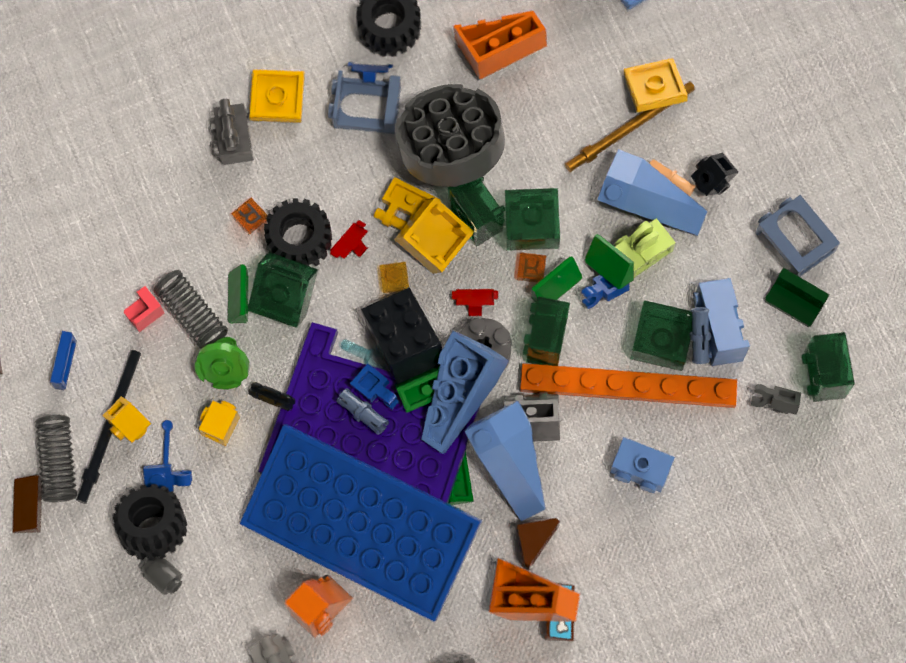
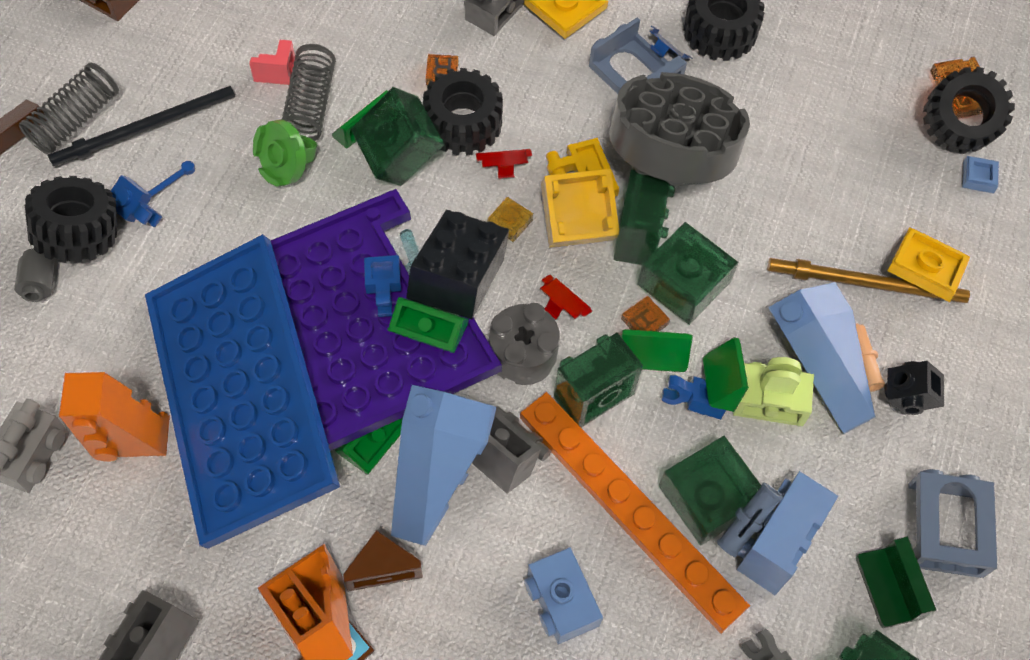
camera: 40 degrees right, 10 degrees down
(63, 360) = (167, 45): blue tile -> none
(126, 420) = (155, 128): yellow brick -> none
(219, 421) = (228, 198): yellow brick -> none
(271, 396) = (293, 216): black axle -> none
(362, 411) = (349, 292): sand blue pin -> none
(463, 382) = (464, 347): medium blue wedge -> none
(500, 42) = (811, 112): orange wedge -> none

